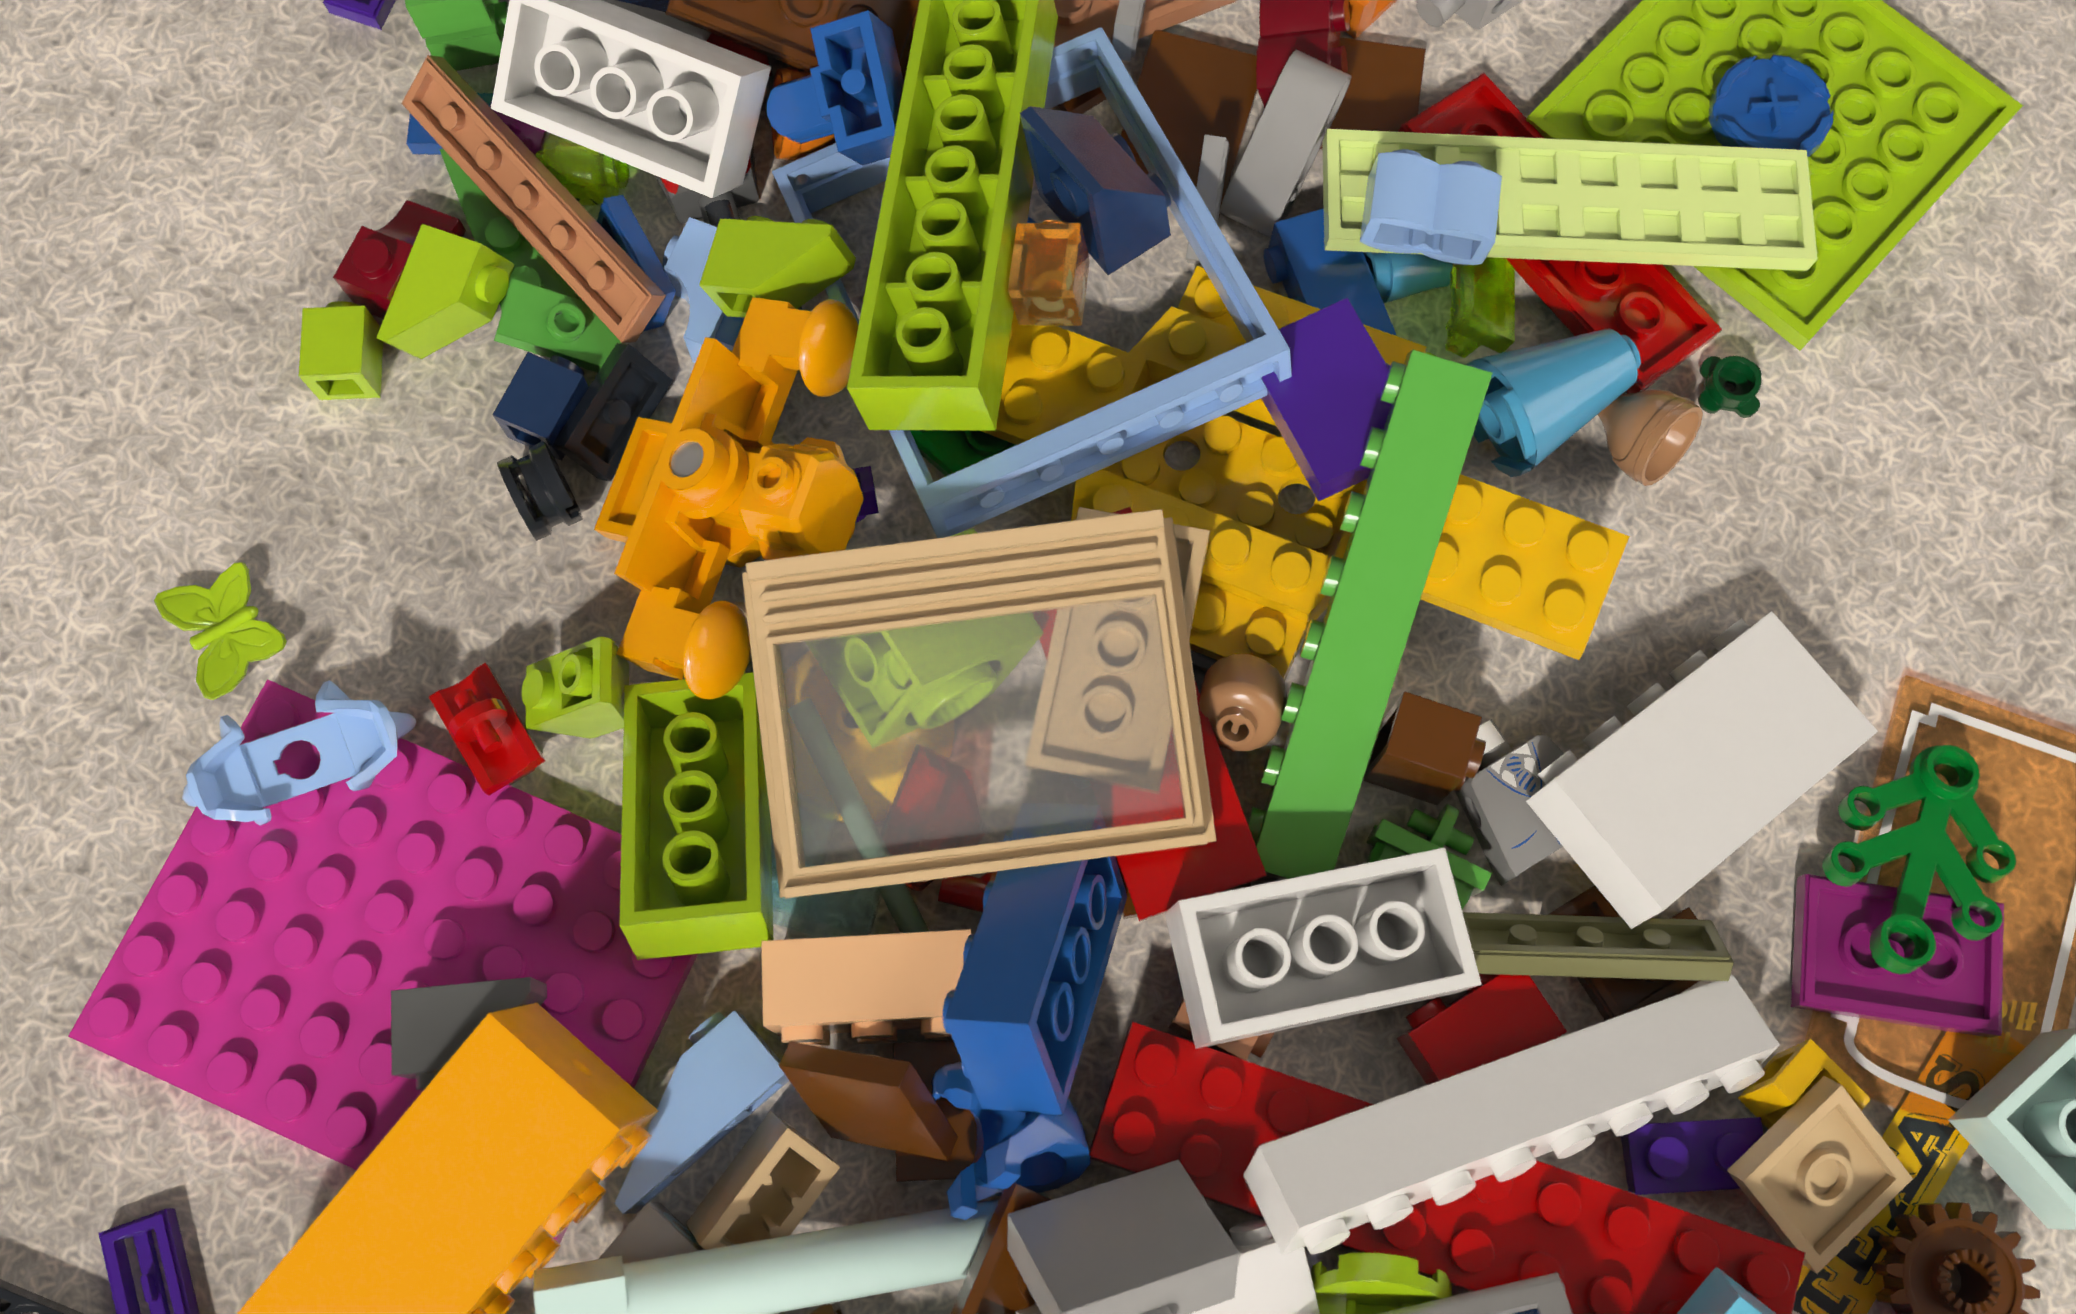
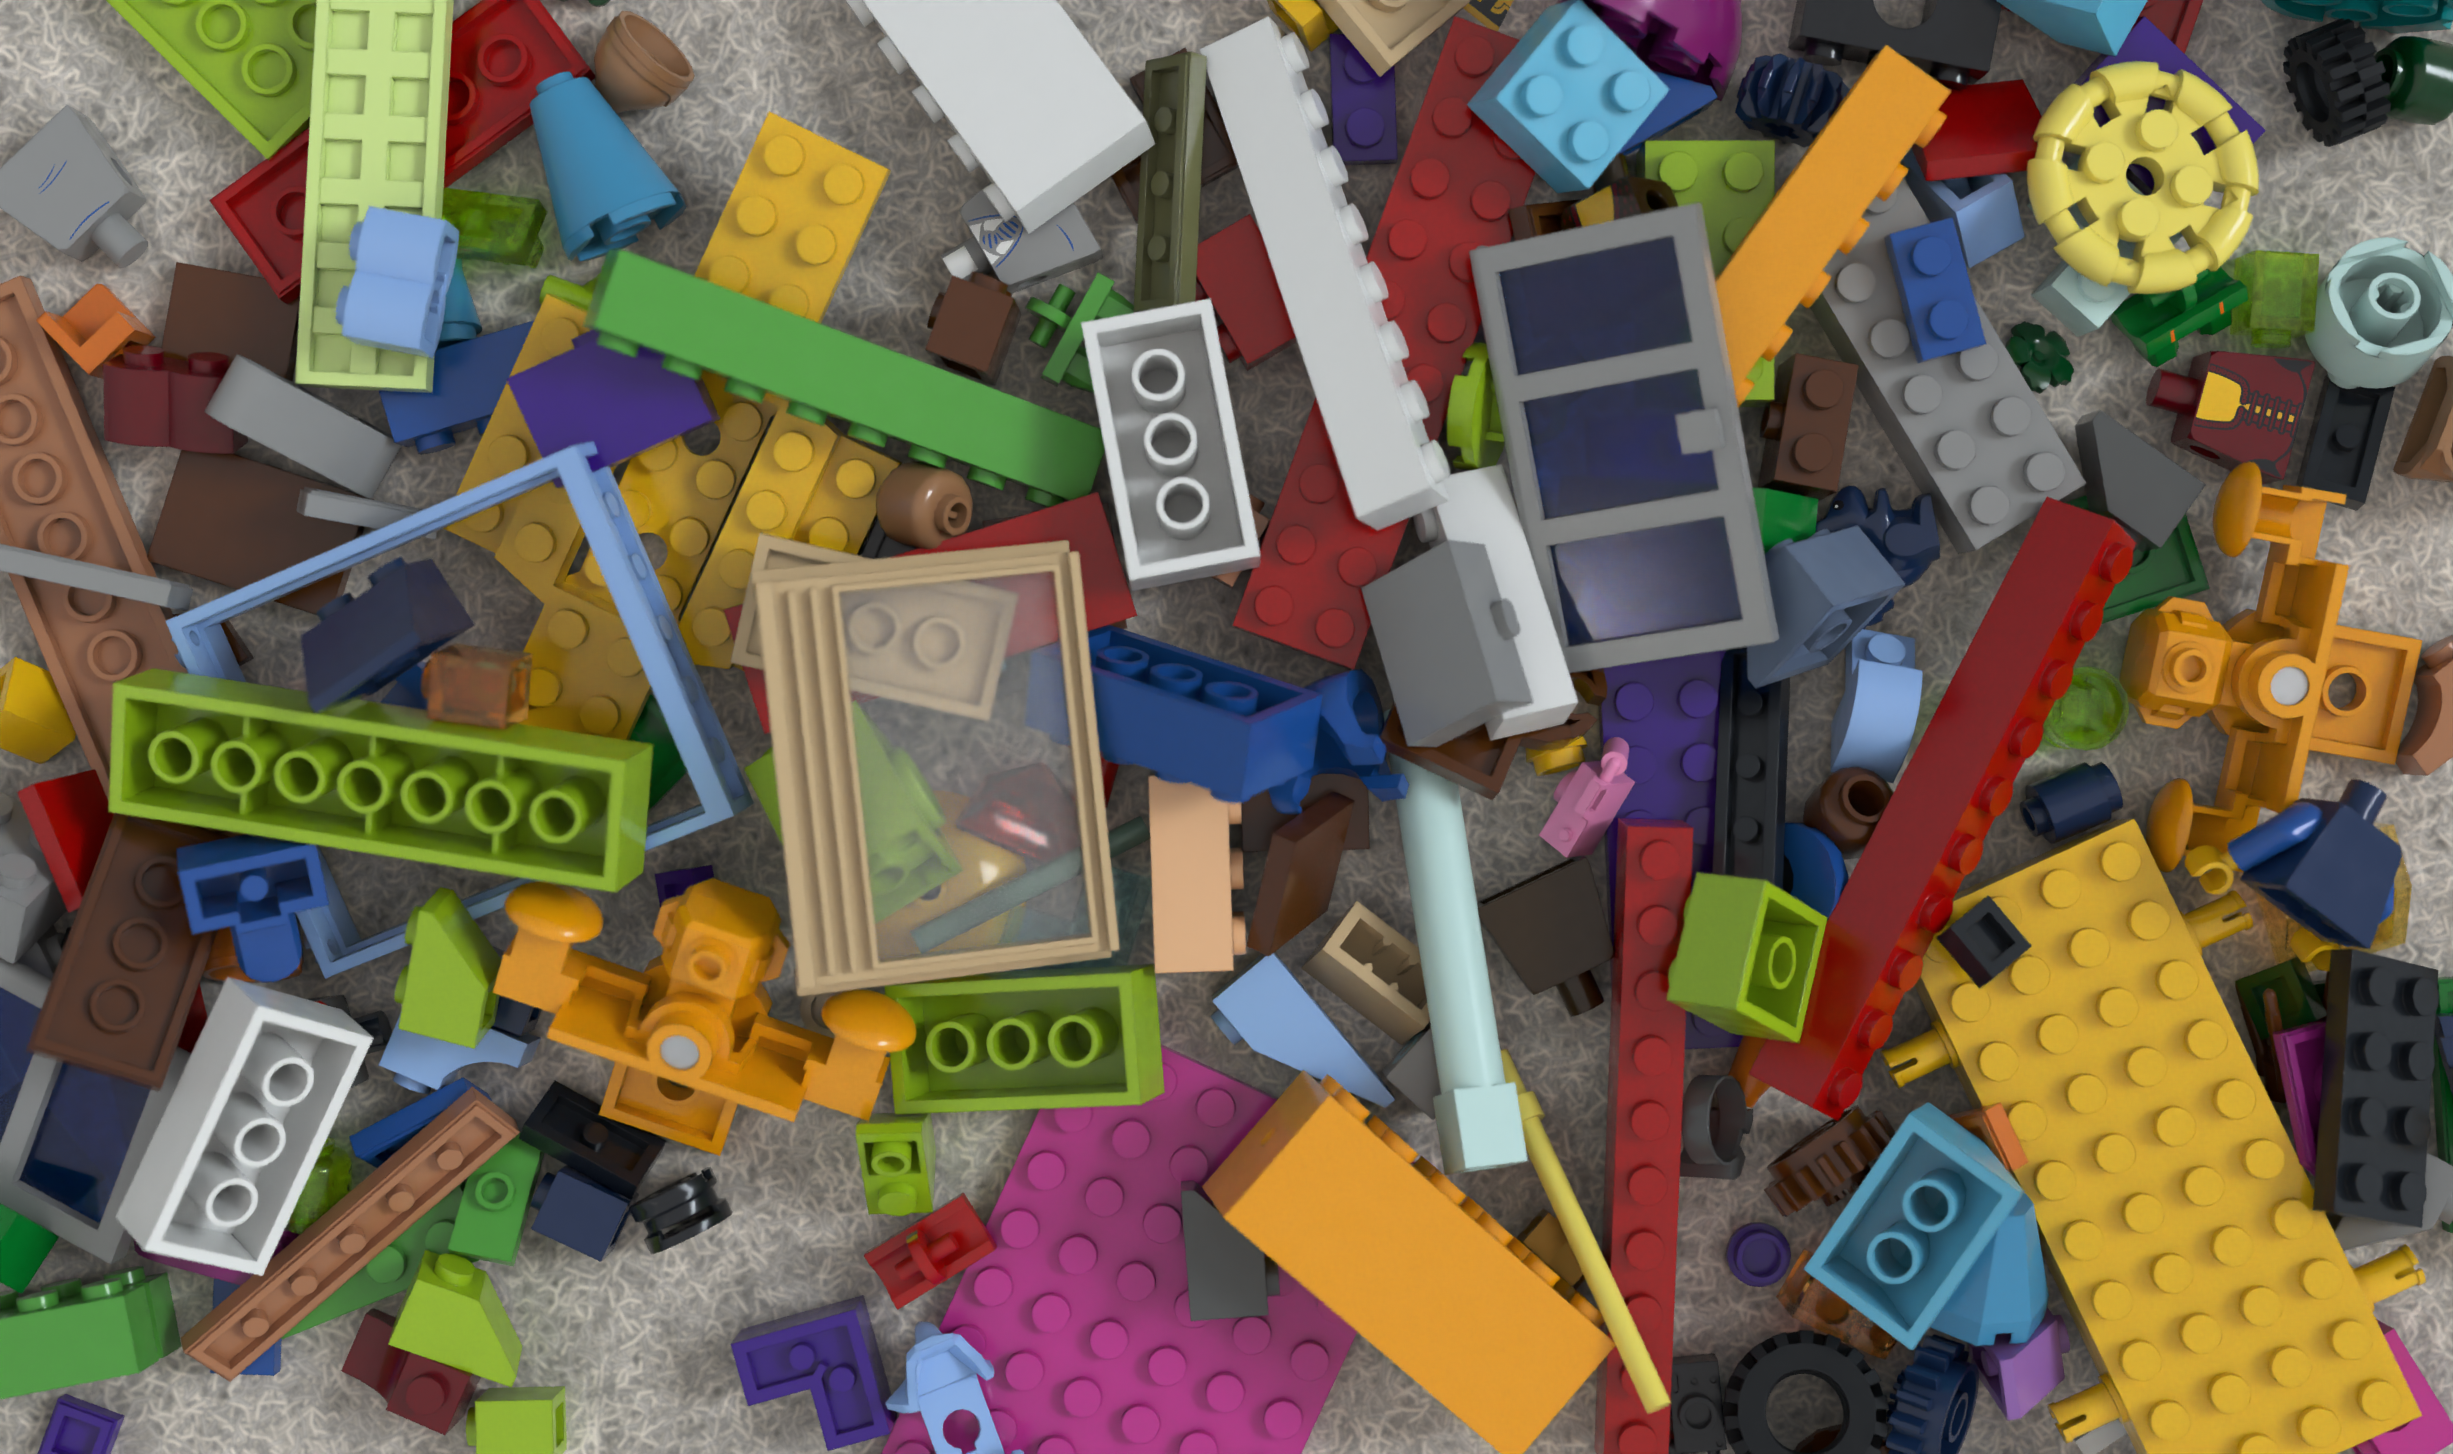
camera: 90 degrees left, 15 degrees up
(386, 636) = (830, 1354): none -> dark purple panel

